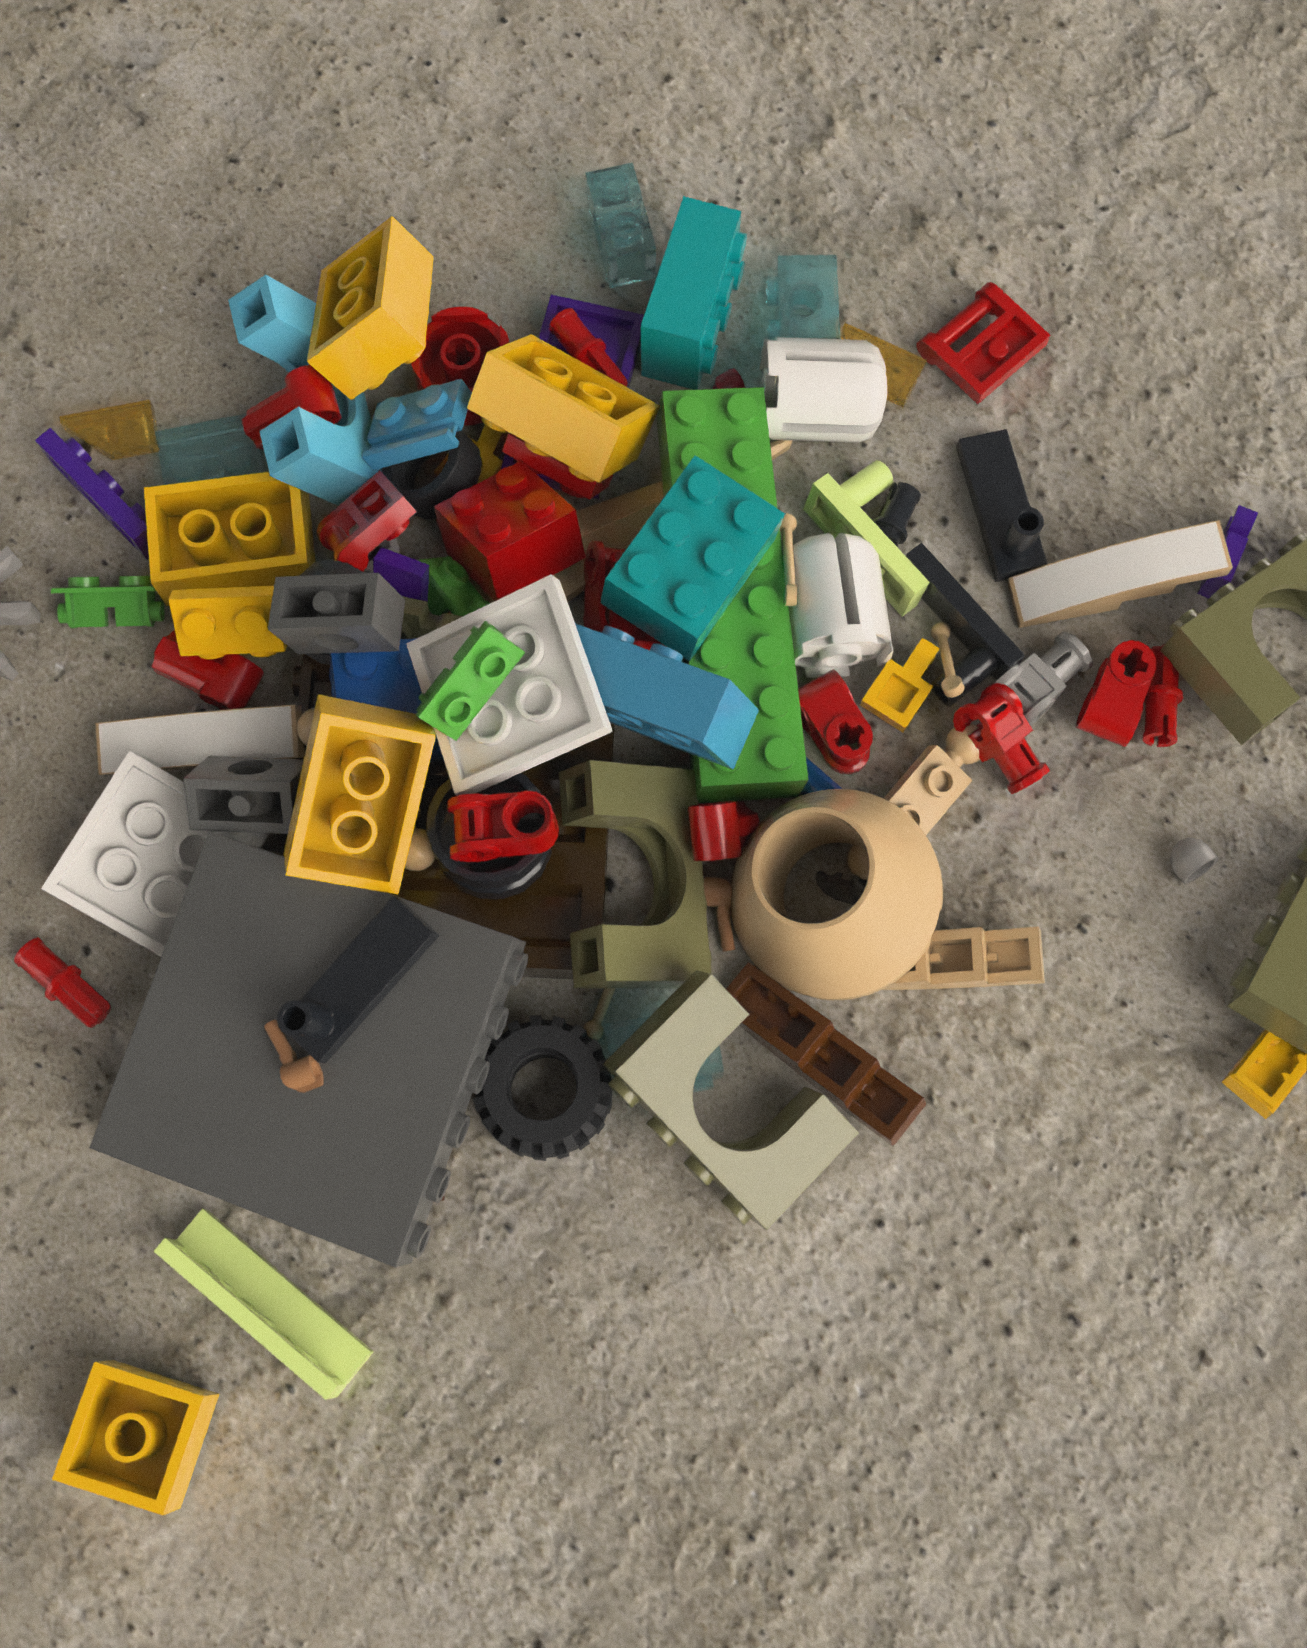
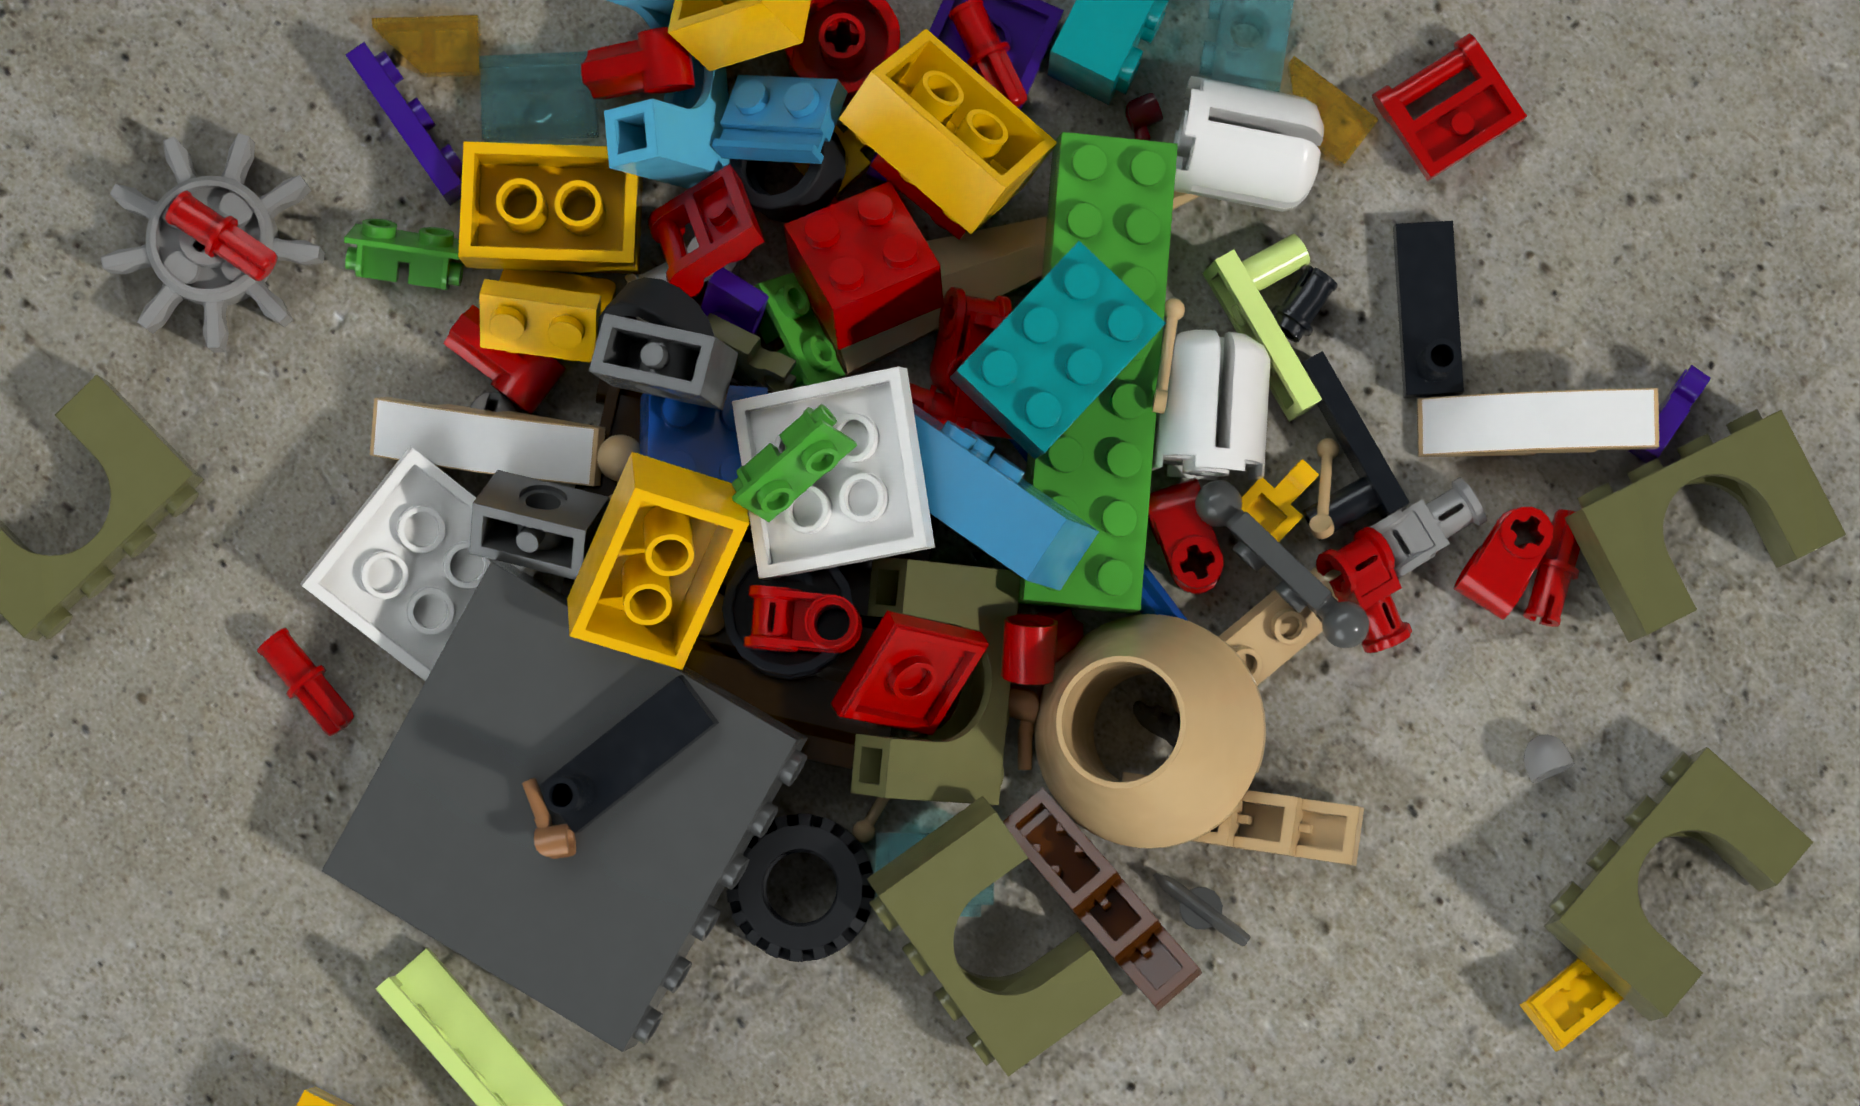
camera: 10 degrees right, 10 degrees up
(609, 867) = (909, 673): none -> red plate
(913, 1047) = (1202, 909): none -> dark grey piece
(941, 734) = (1343, 622): none -> dark grey plate

